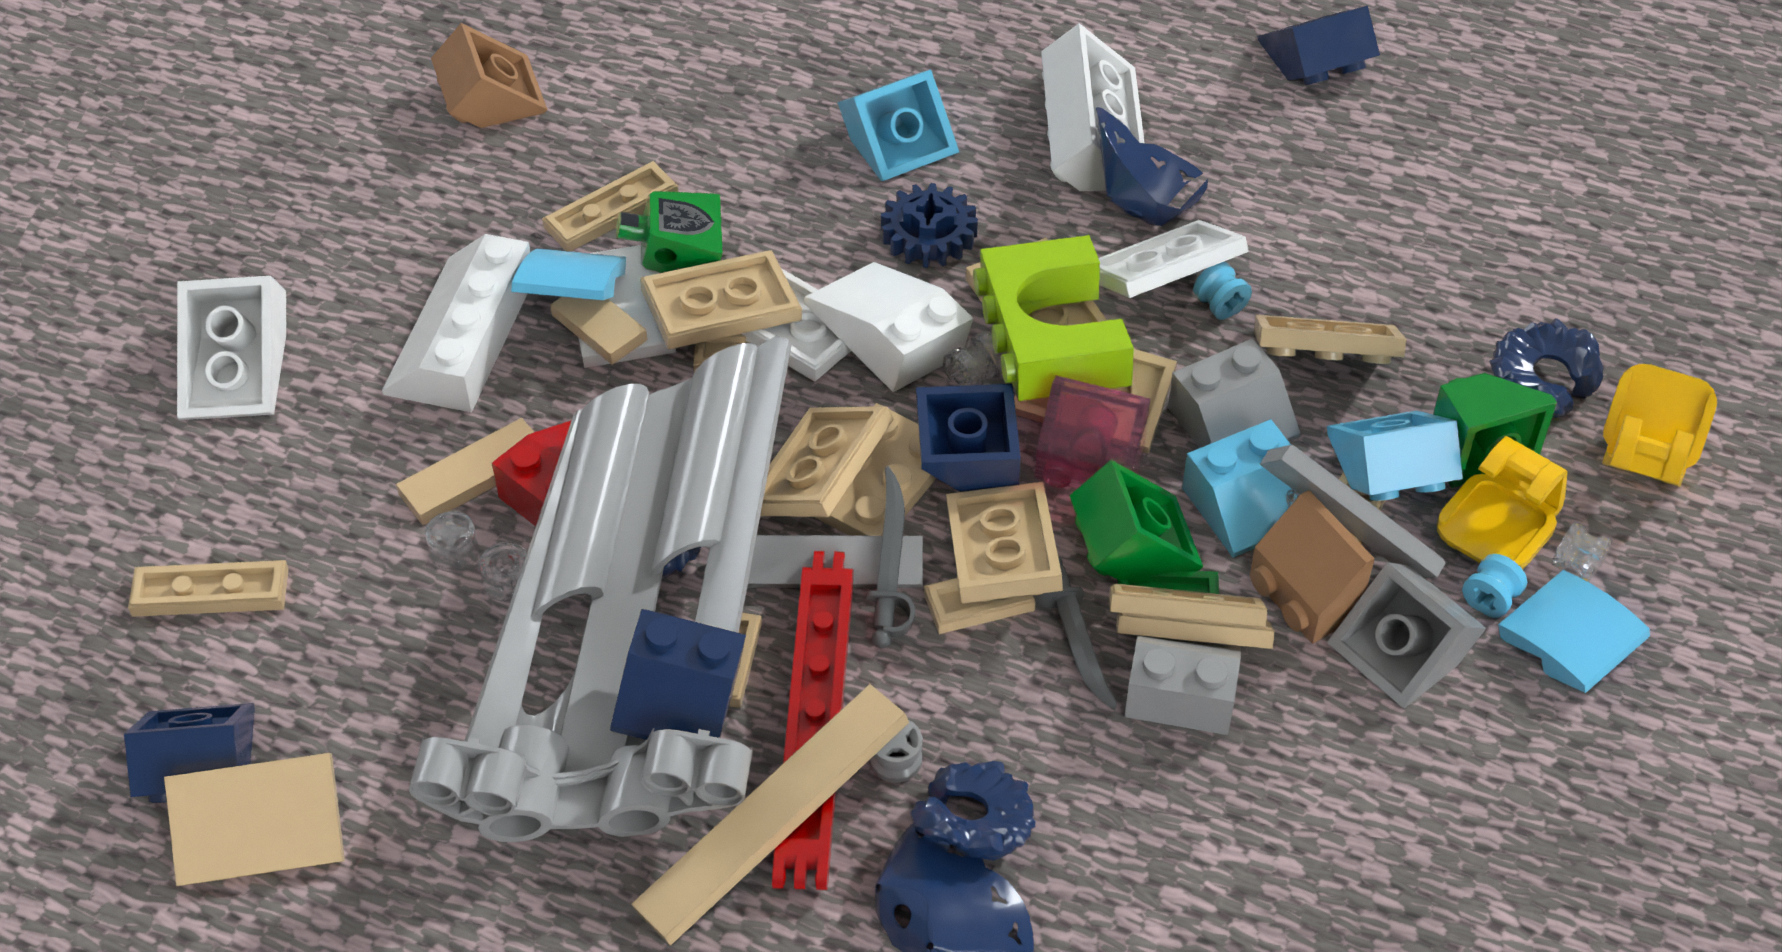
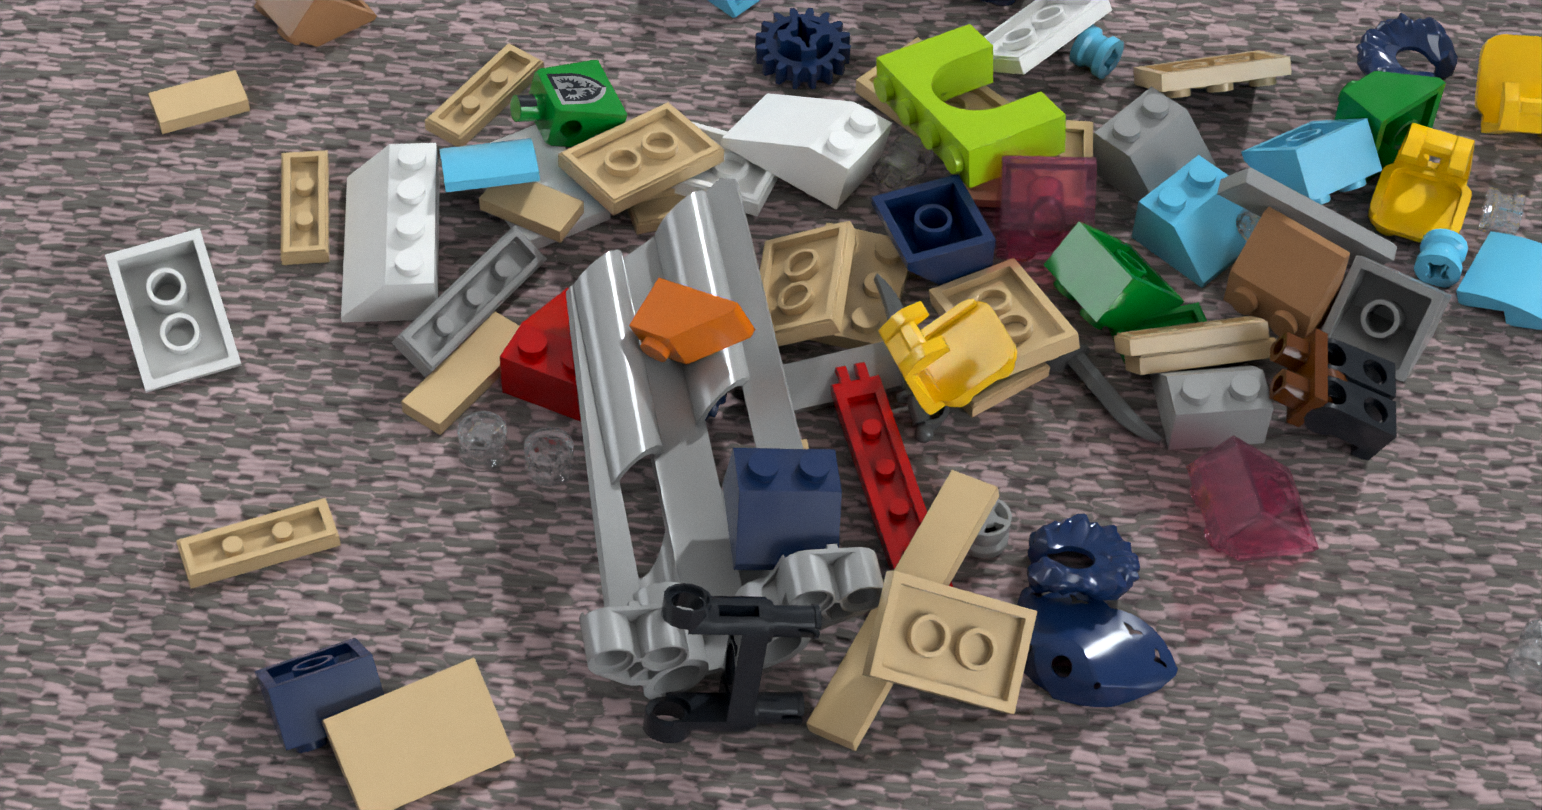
camera: 20 degrees left, 0 degrees up
(349, 157) = (199, 101): none -> tan tile
(397, 278) = (305, 207): none -> tan tile
(500, 401) = (469, 301): none -> light grey tile
(586, 791) = (738, 704): none -> black connector
(666, 473) = (687, 323): none -> orange slope
(793, 861) = (949, 642): none -> tan plate
(920, 569) = (952, 354): none -> yellow piece
(1178, 796) = (1249, 503): none -> clear pink slope
(1312, 699) = (1336, 390): none -> black hips

